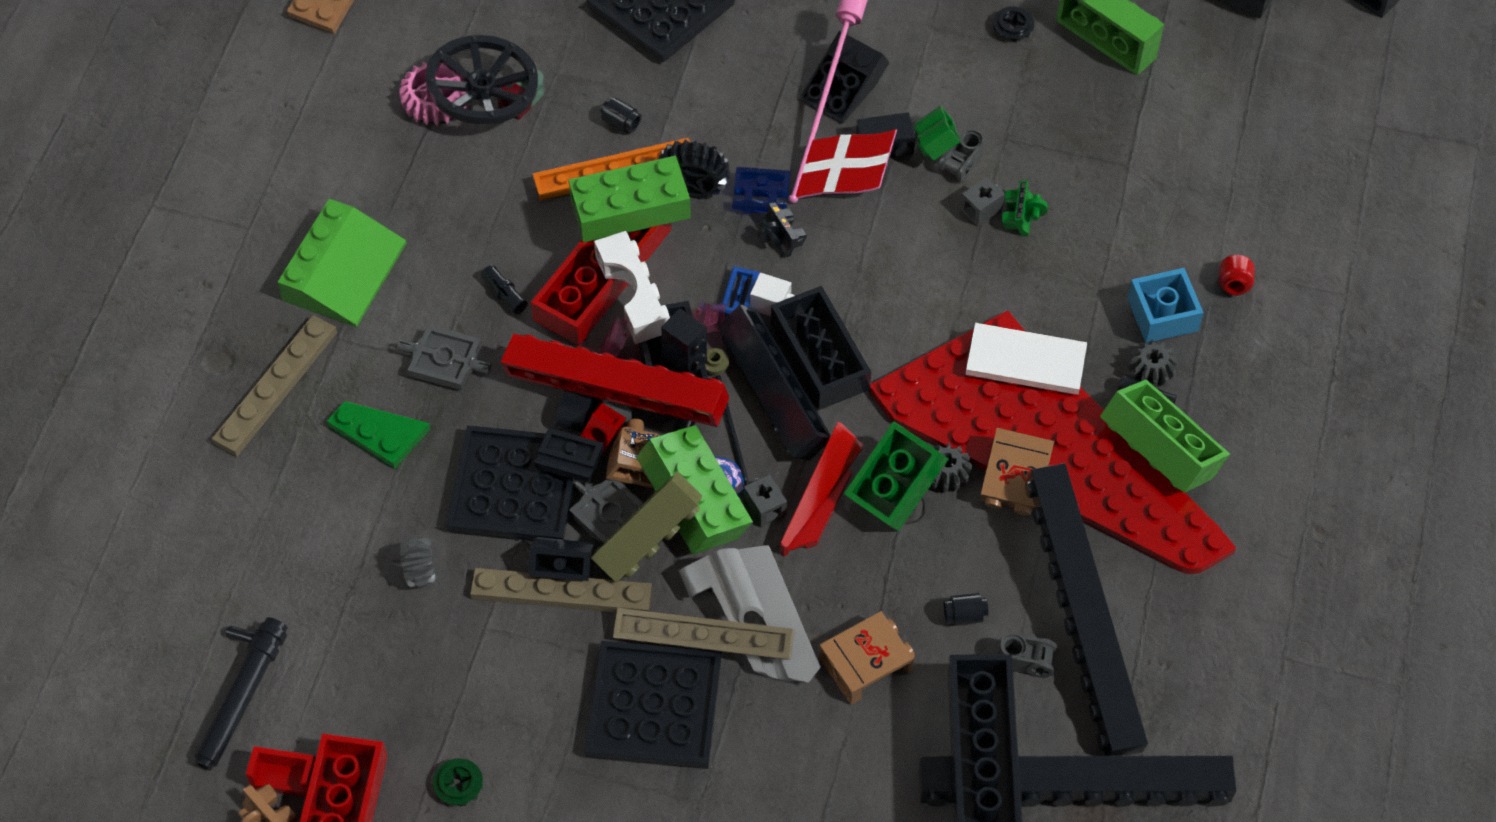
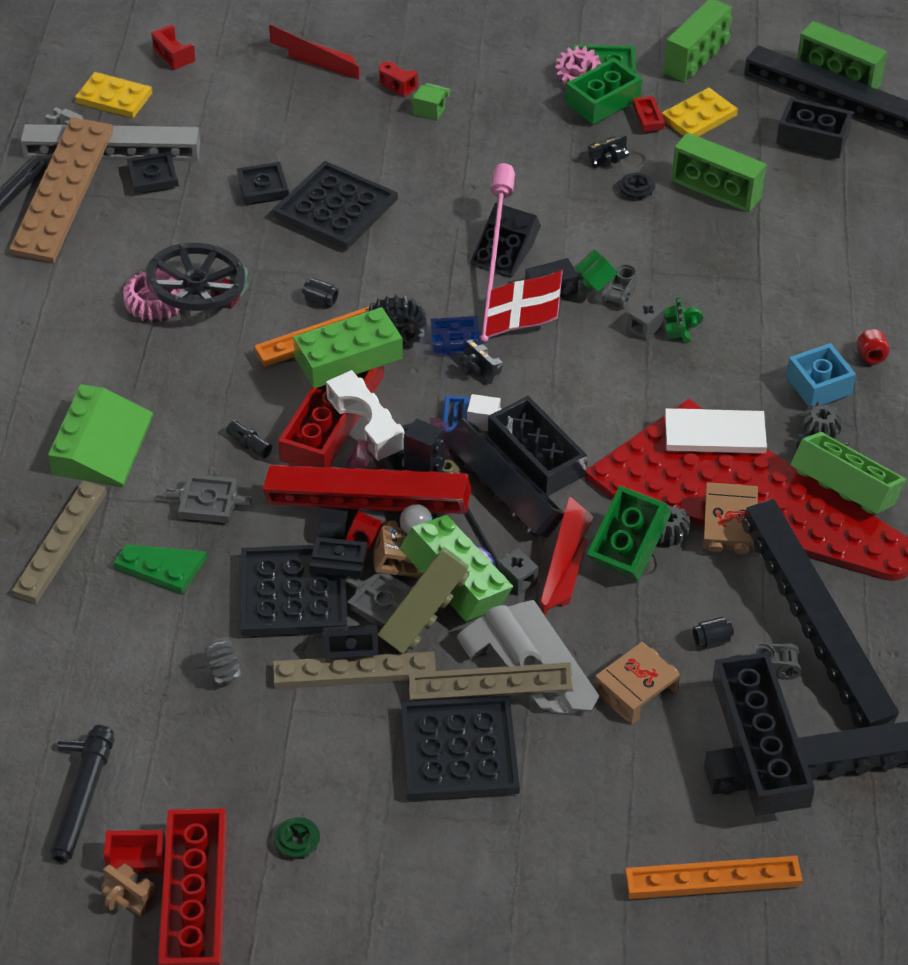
camera: 10 degrees left, 10 degrees down
(659, 422) = (413, 516): none -> light grey piece

